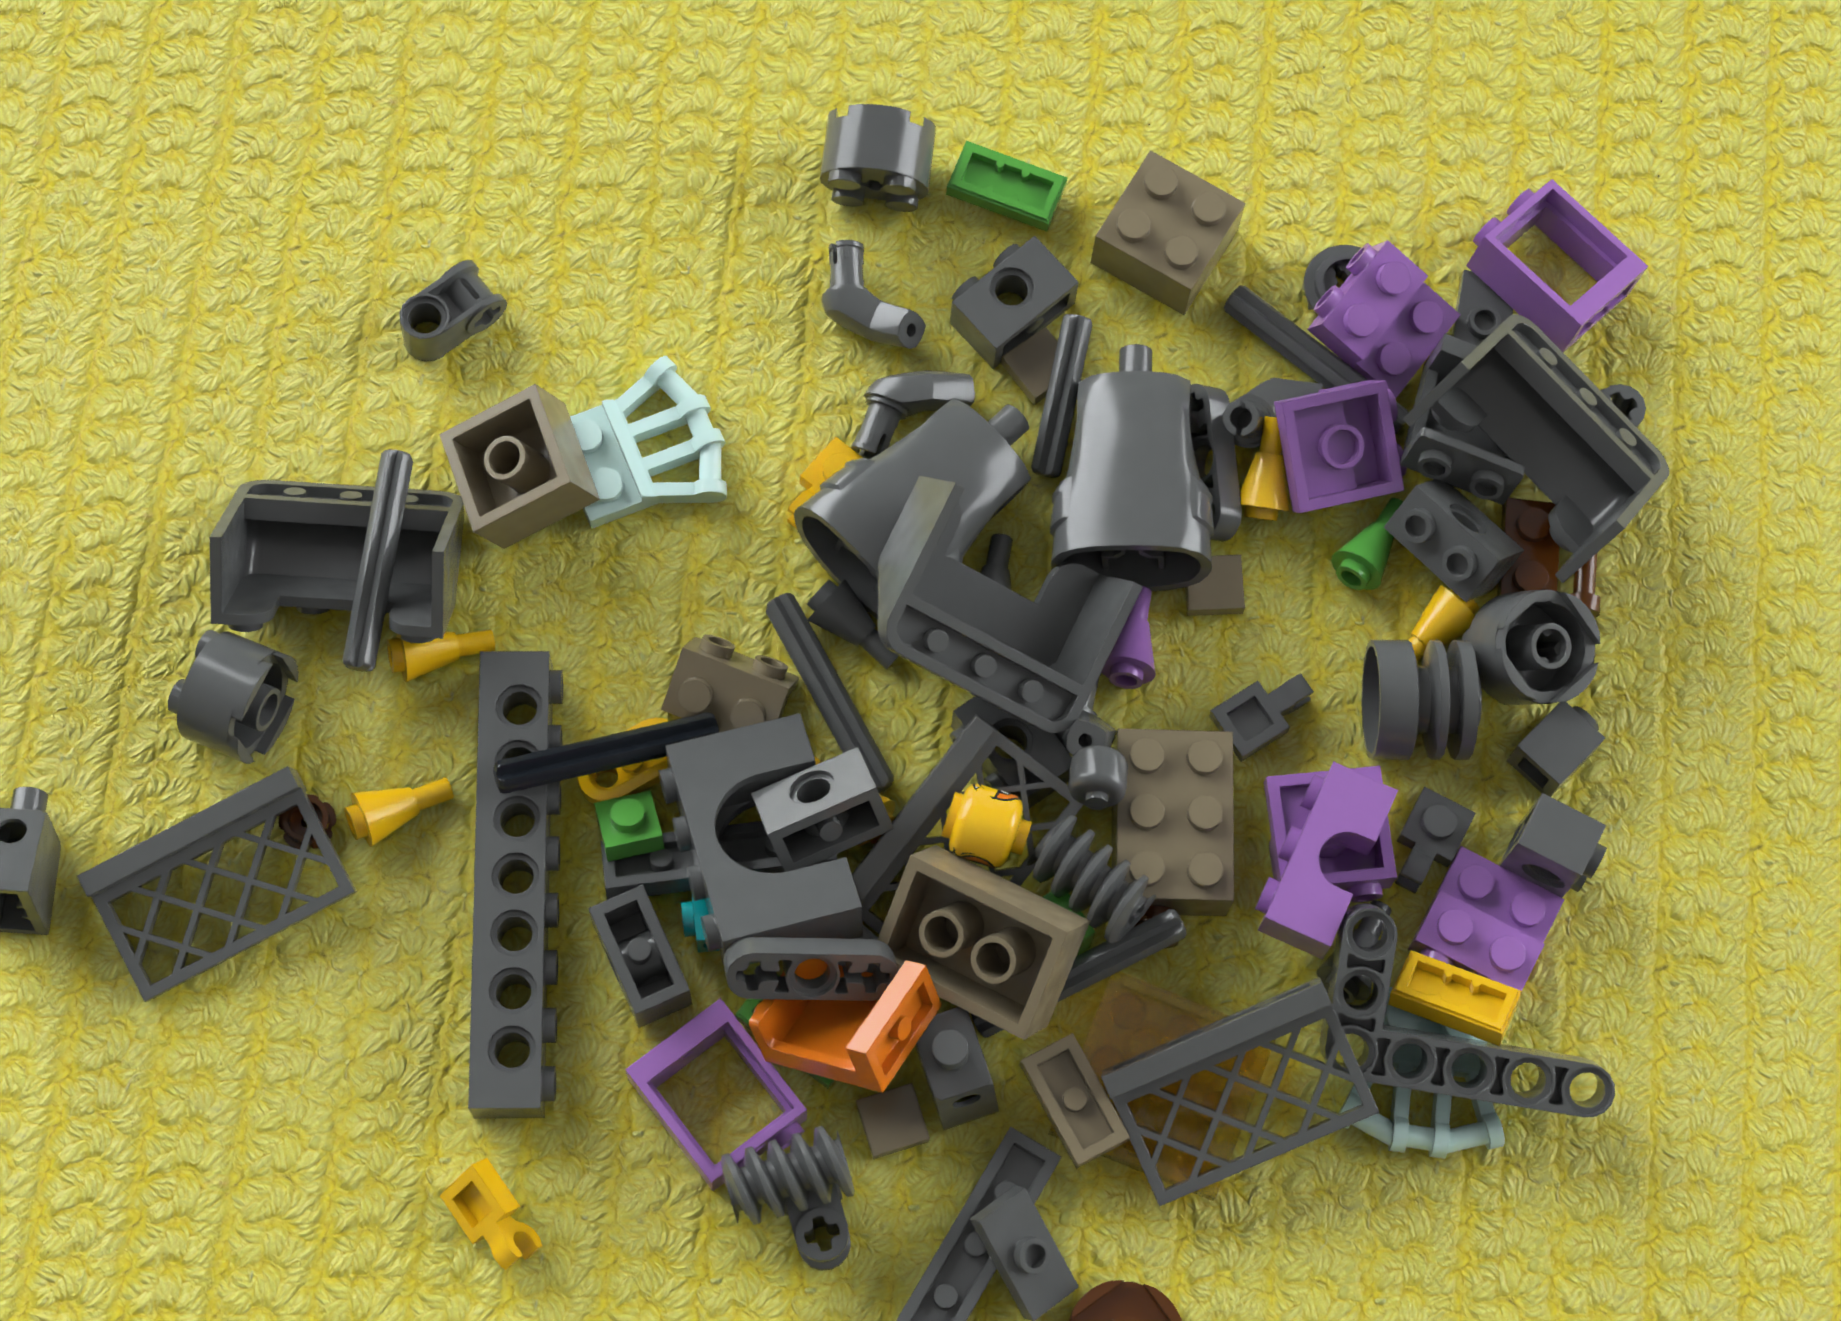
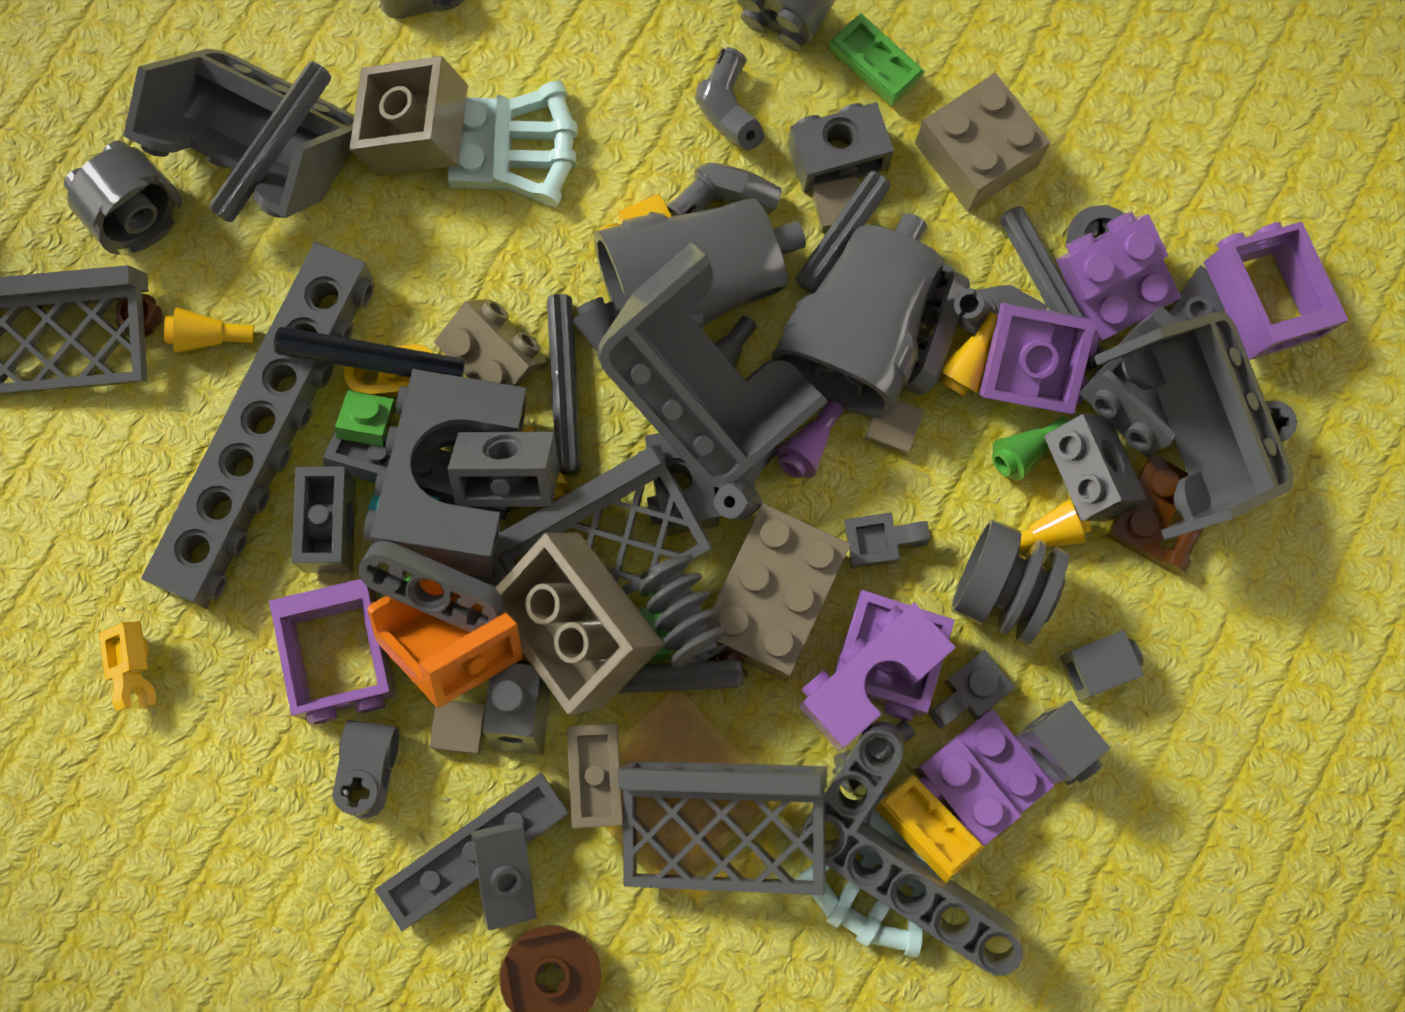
camera: 25 degrees right, 5 degrees up
(422, 658) = (291, 230): yellow cone -> none
(787, 1175) = (344, 739): dark grey piece -> none
(986, 825) = (622, 534): yellow head -> none
(1098, 777) = (727, 534): dark grey piece -> none
(1534, 647) = (1120, 579): dark grey brick -> none

